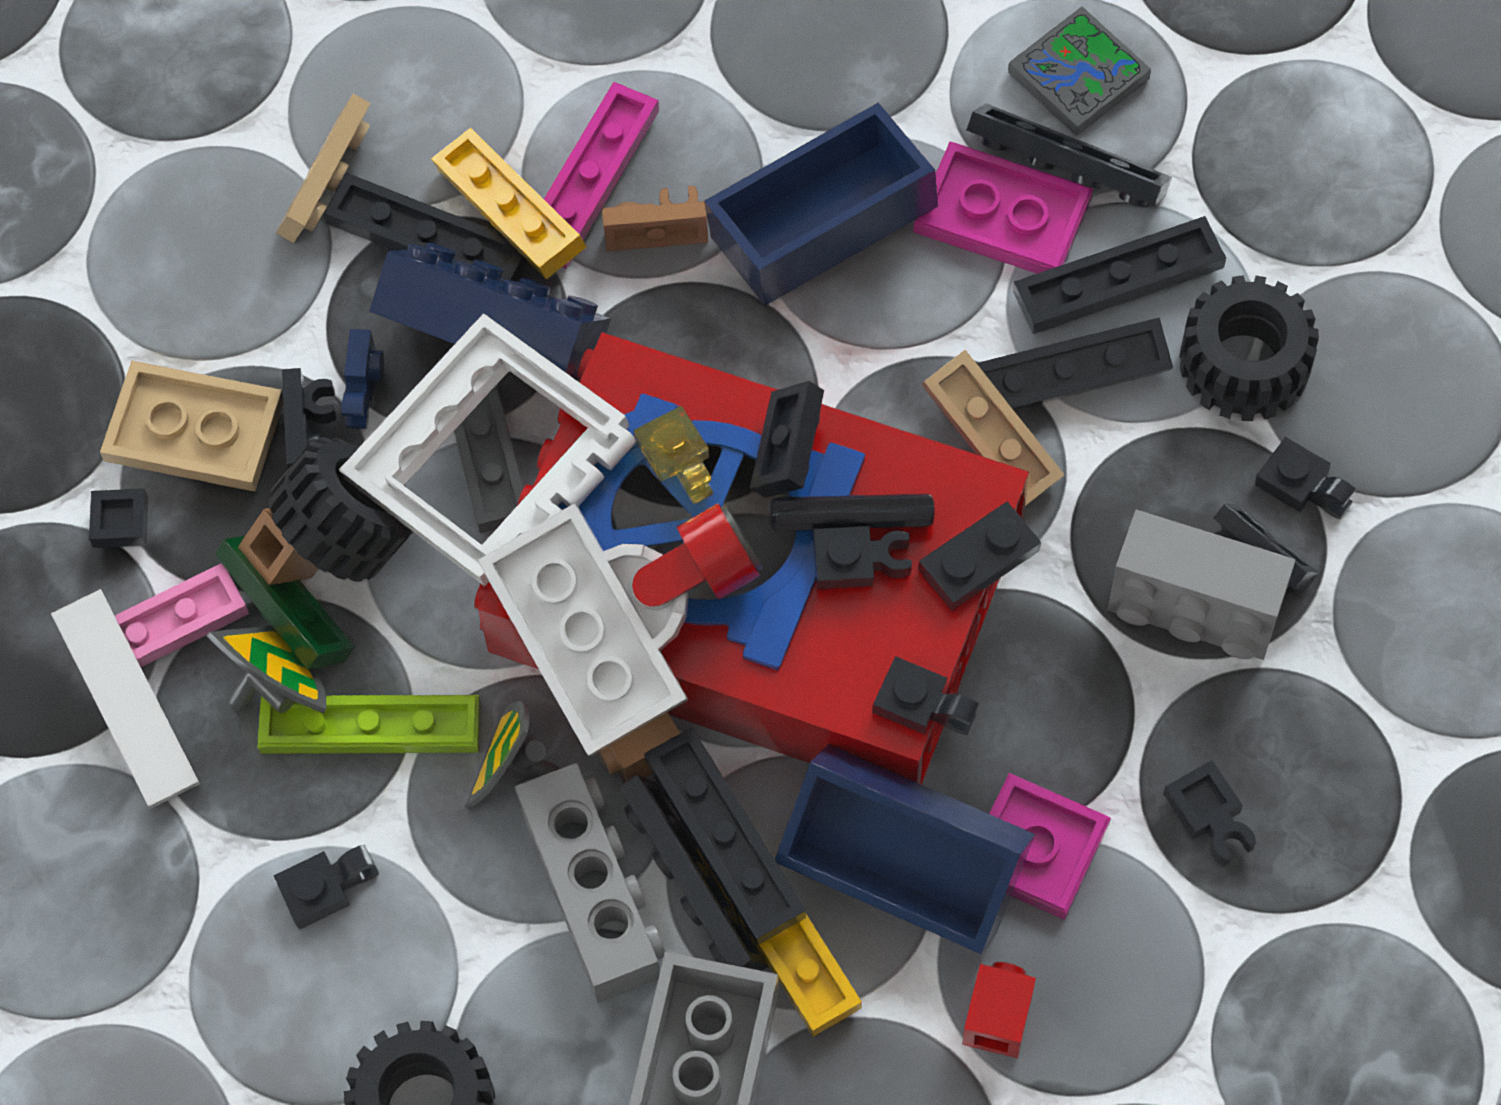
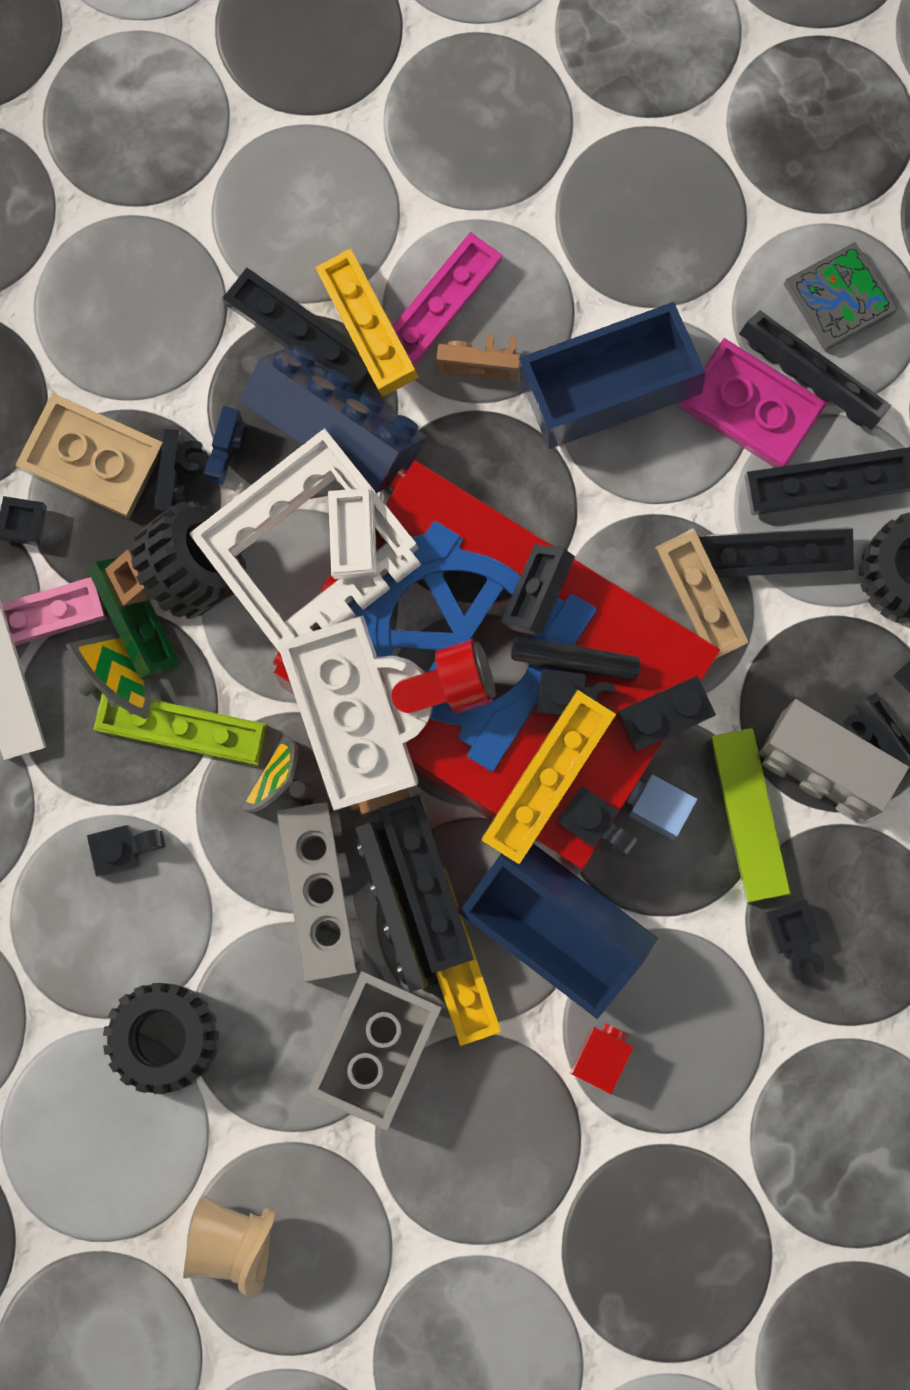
camera: 10 degrees right, 15 degrees up
(326, 170) = (231, 259): tan plate -> none
(489, 462) = (310, 543): dark grey plate -> none
(544, 420) = (352, 533): none -> white tile
(676, 449) = (449, 576): clear yellow plate -> none
(849, 652) = (548, 776): none -> yellow plate
(1003, 687) = (660, 806): none -> light blue brick
(1062, 845) = (677, 924): dark pink tile -> none
(1117, 681) = (749, 815): none -> lime tile

